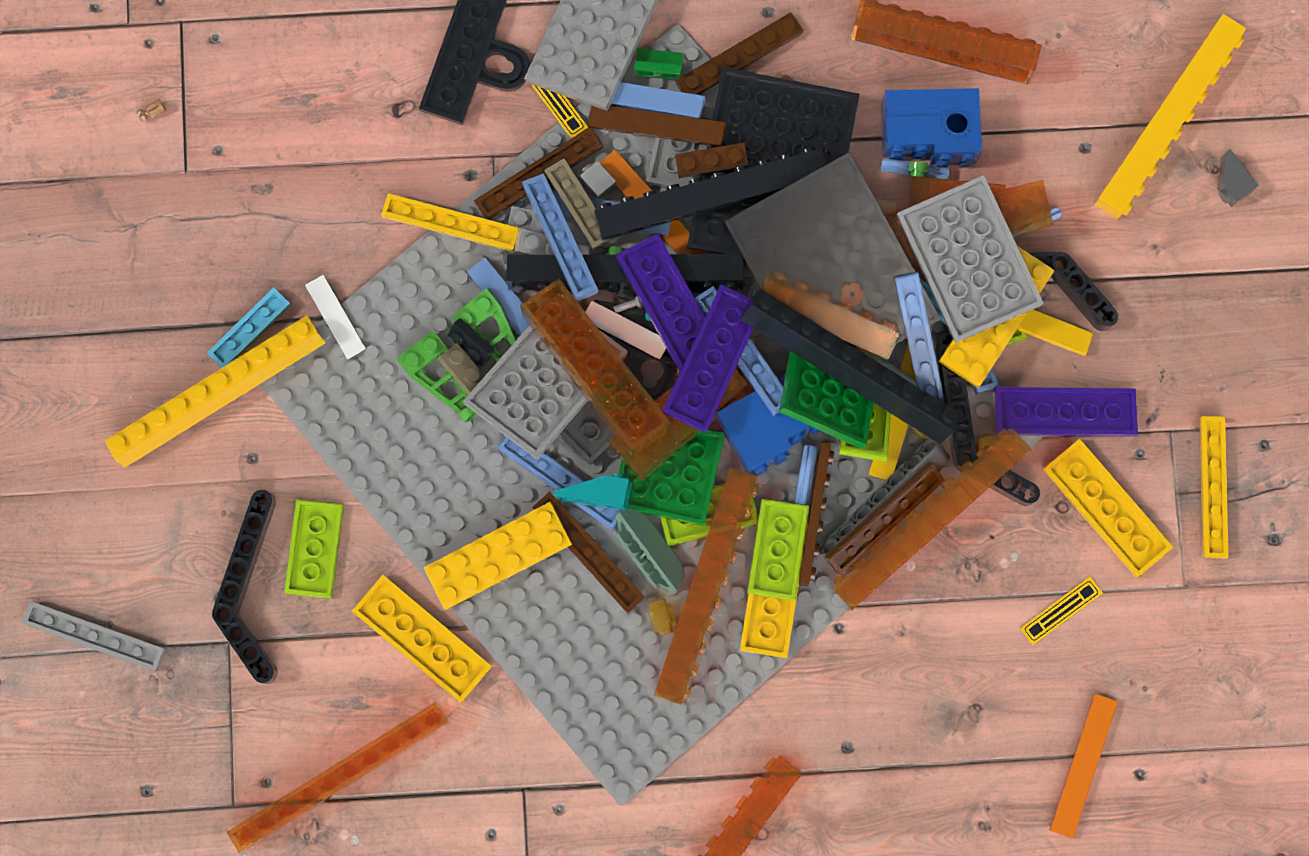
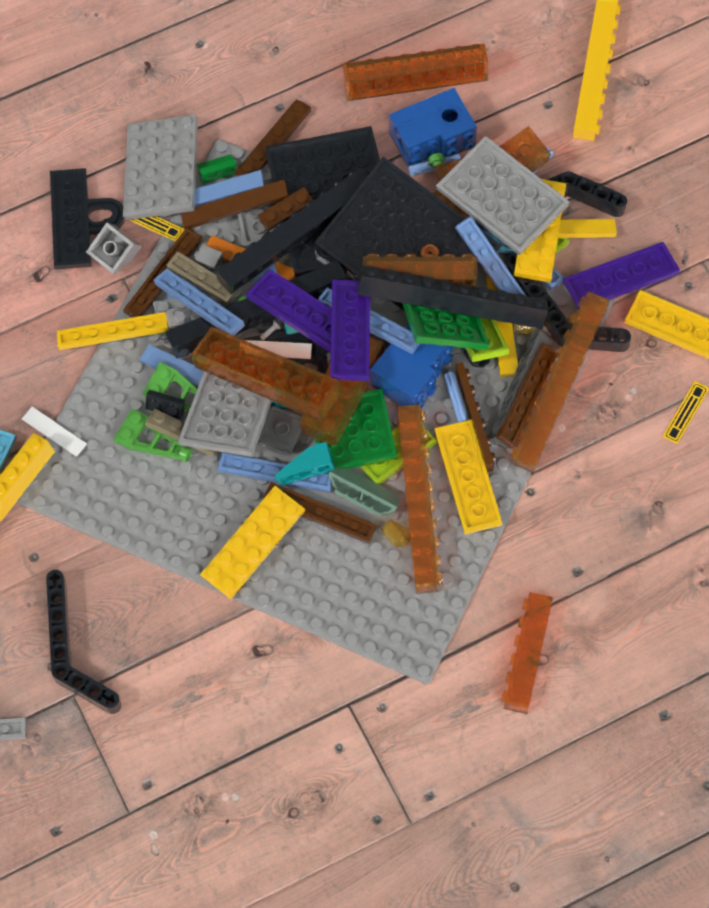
camera: 20 degrees left, 15 degrees down
(314, 549) = (110, 600): lime tile -> none
(338, 777) = (202, 752): clear orange brick -> none
(422, 639) = (221, 627): yellow plate -> none
(495, 116) = (113, 248): none -> light grey slope
(778, 549) = (459, 450): lime tile -> none
(1234, 180) = (662, 81): dark grey slope -> none

